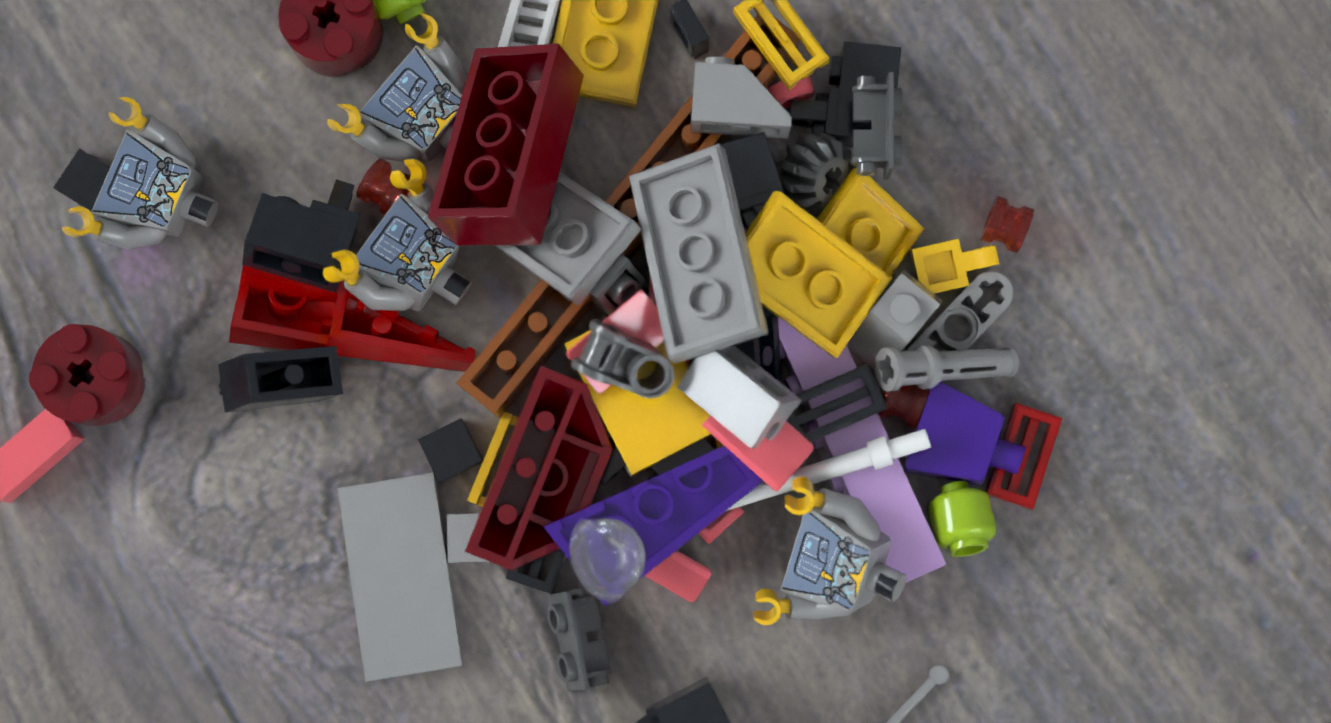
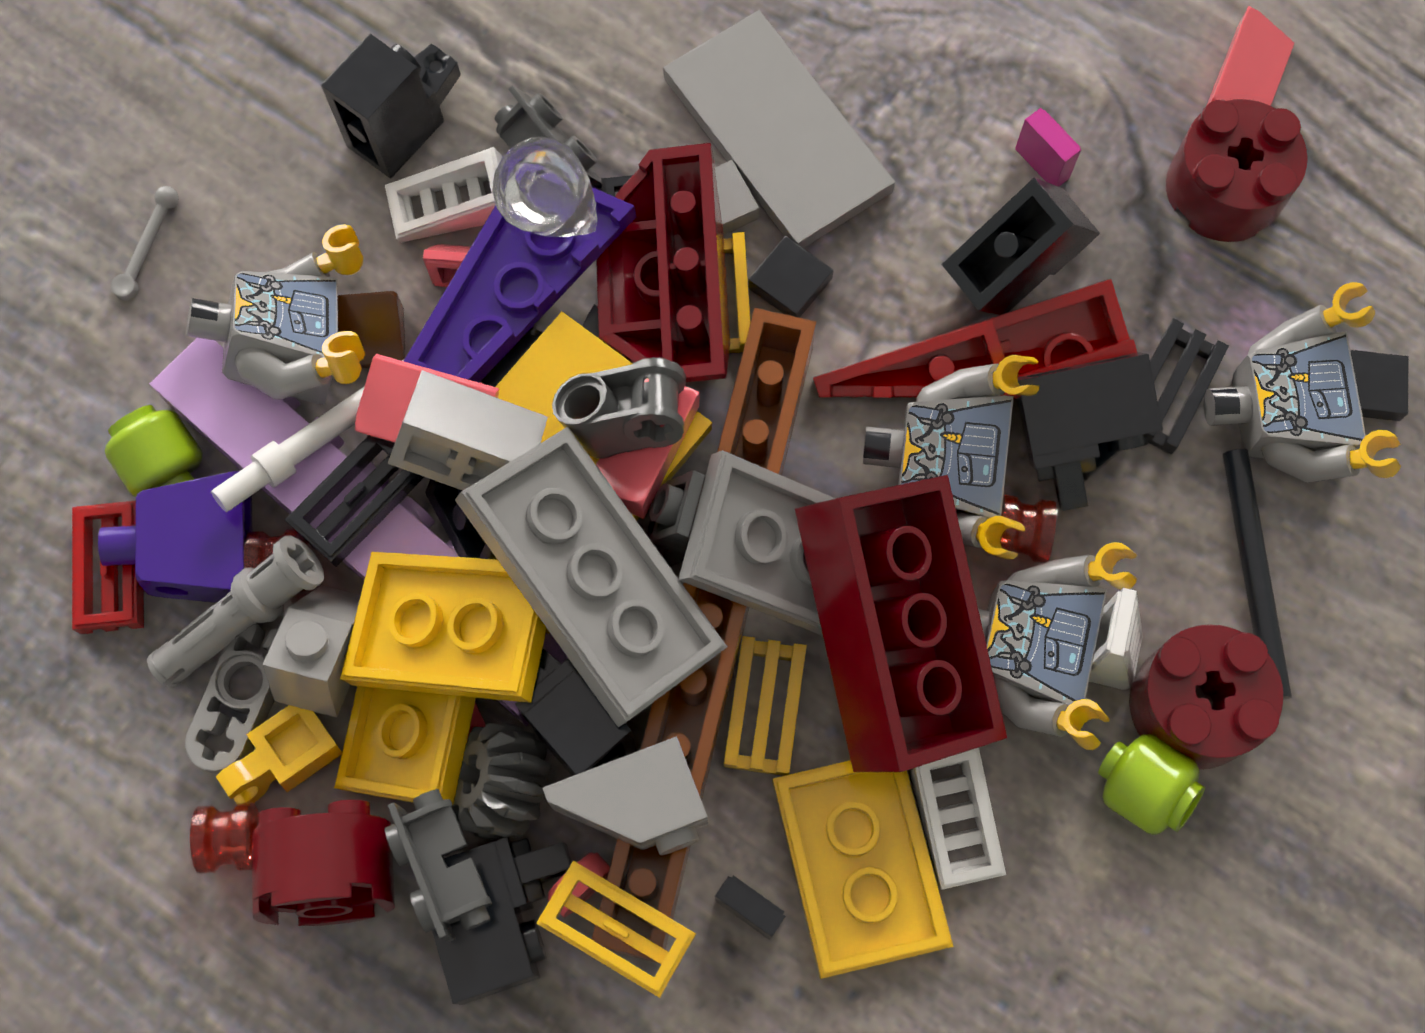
camera: 155 degrees right, 10 degrees down
(209, 235) = (1193, 345): none -> black tile
(212, 459) = (1047, 148): none -> dark pink tile
(244, 97) = (1254, 558): none -> black bar
(368, 78) = (1118, 642): none -> white slope
(627, 622) = (447, 177): none -> white slope
(638, 121) = (772, 651): none -> yellow tile
(769, 547) = (376, 321): none -> reddish brown slope
(950, 168) = (321, 865): none -> dark red brick

